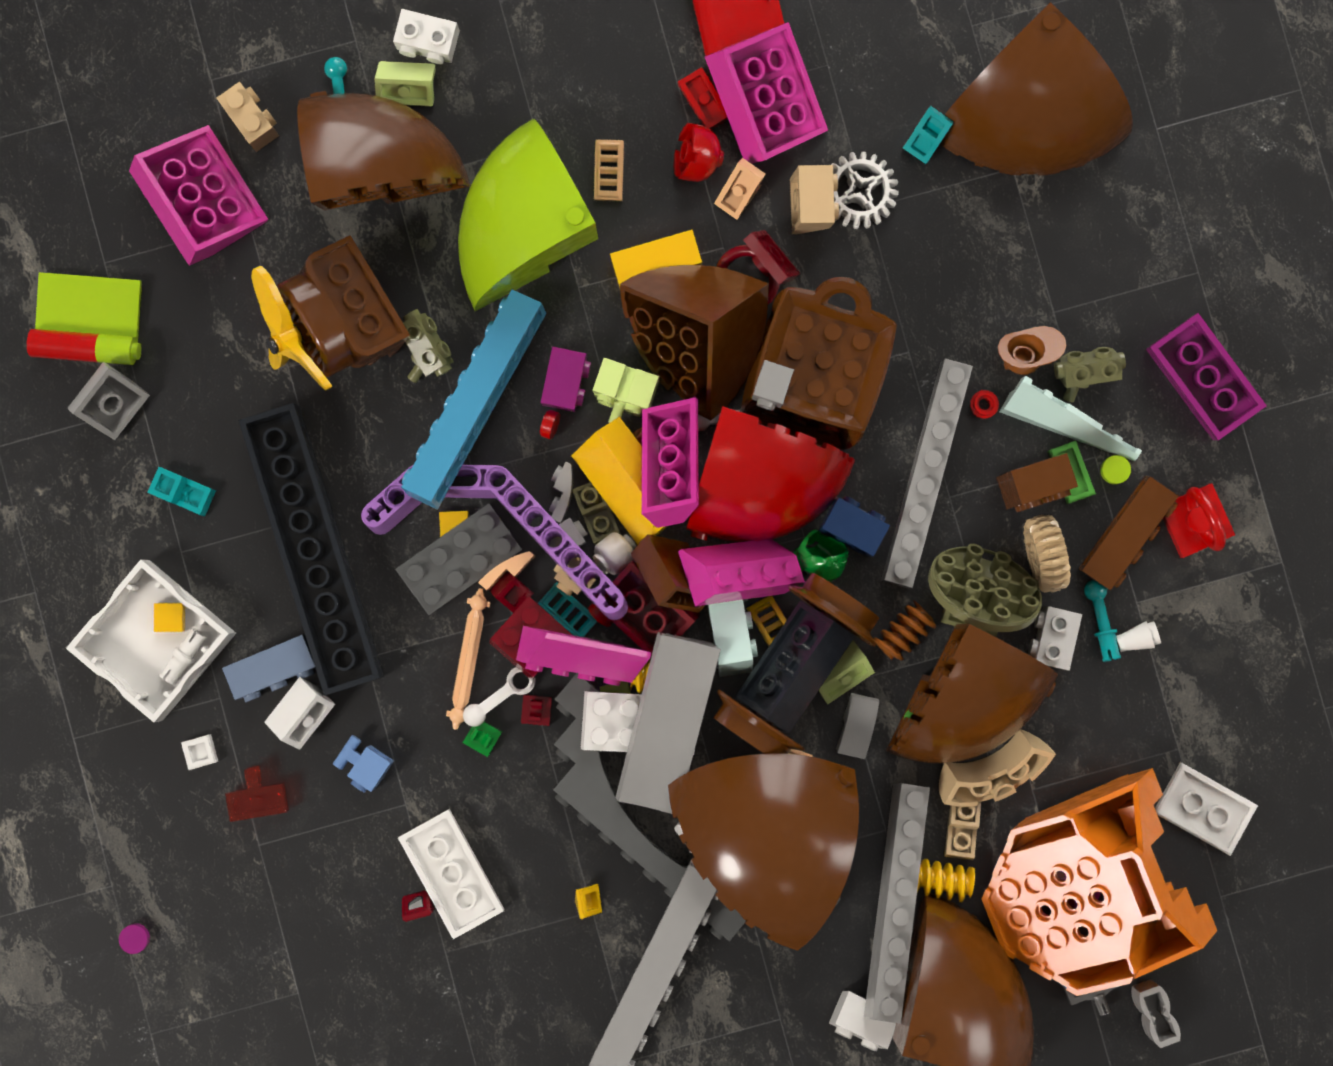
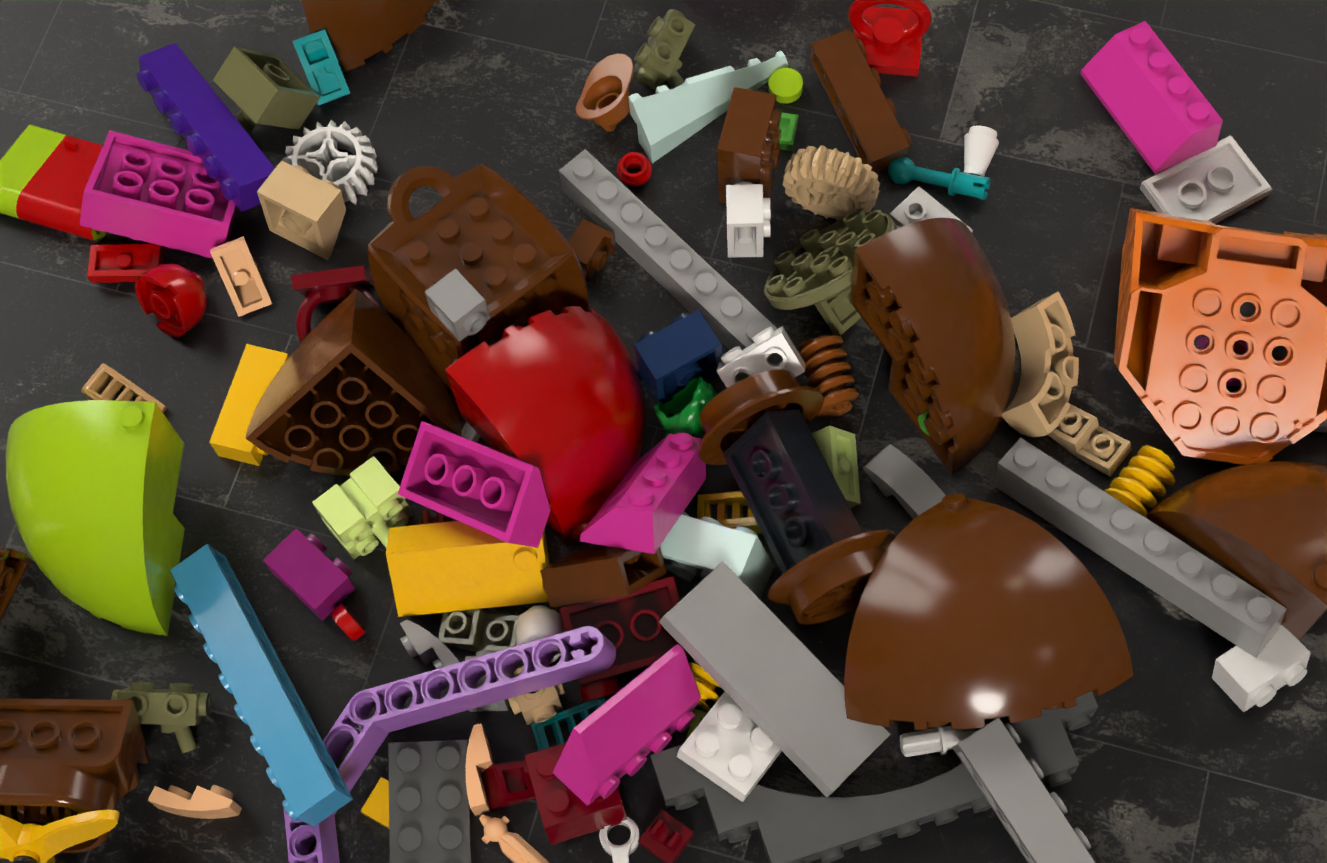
camera: 55 degrees left, 20 degrees down
(385, 414) = (203, 803): none -> light nougat slope
(835, 85) = (205, 124): none -> dark purple brick
(877, 588) = (770, 352): none -> white brick
(885, 108) = (265, 90): none -> olive brick
(900, 412) = (592, 246): none -> reddish brown brick
(986, 510) = (746, 219): none -> white brick
(1252, 736) = (1152, 98): none -> dark pink slope

